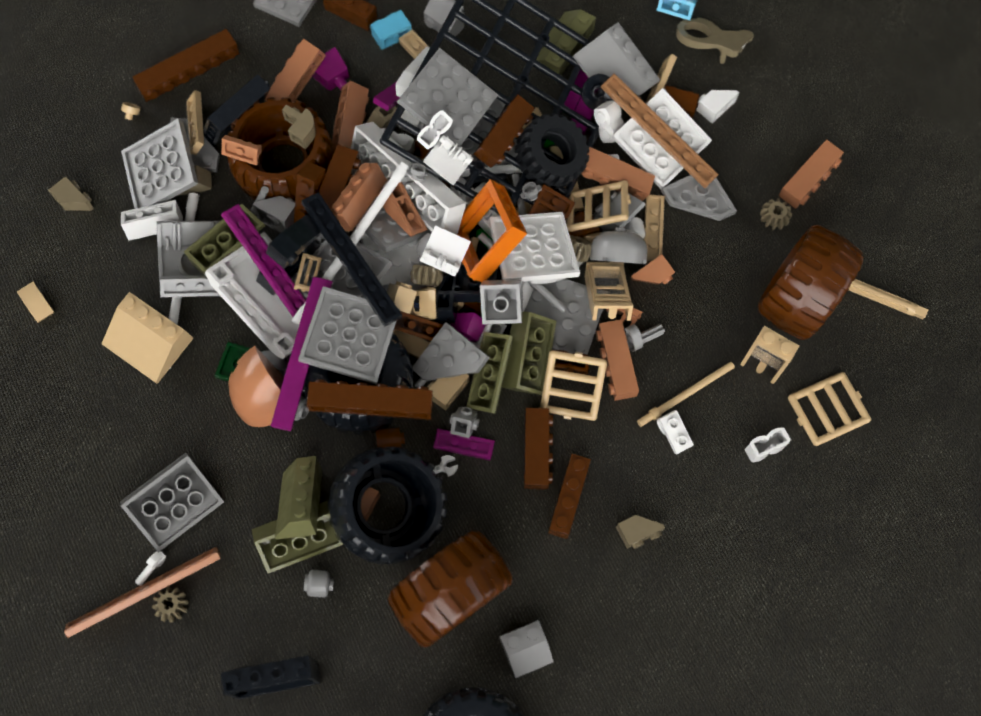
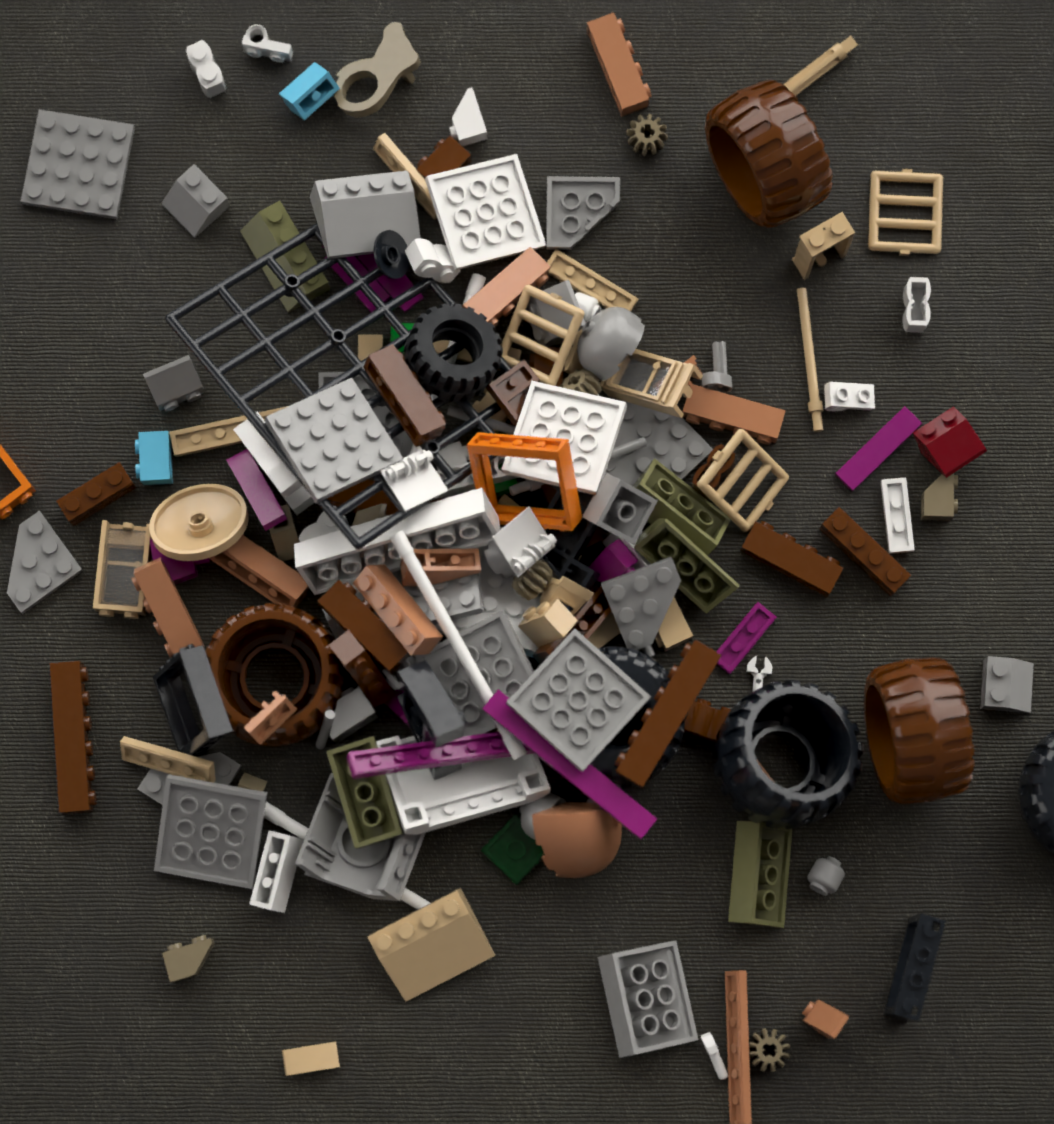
camera: 60 degrees left, 10 degrees up
(130, 110) = (100, 834): tan tile -> none
(207, 632) = (824, 1019): none -> nougat slope
(299, 499) = (724, 852): olive slope -> none
(303, 125) = (278, 627): dark tan brick -> none
(304, 287) = (474, 710): tan tile -> none
(321, 34) = (120, 552): none -> clear door
(351, 259) = (486, 653): black tile -> none
(359, 66) = (199, 522): none -> tan dish
(417, 172) = (413, 524): light grey plate -> none
(439, 124) = (380, 481): white brick -> none
(464, 422) = (723, 624): light grey brick -> none
(530, 191) = (482, 404): light grey plate -> none
(608, 507) = (897, 515): none -> white plate
(650, 471) = (878, 448): none -> magenta tile
(655, 272) = (652, 310): nougat slope -> none
(659, 130) = (478, 211): medium nougat tile -> none
(681, 515) = (949, 442): none -> dark red slope

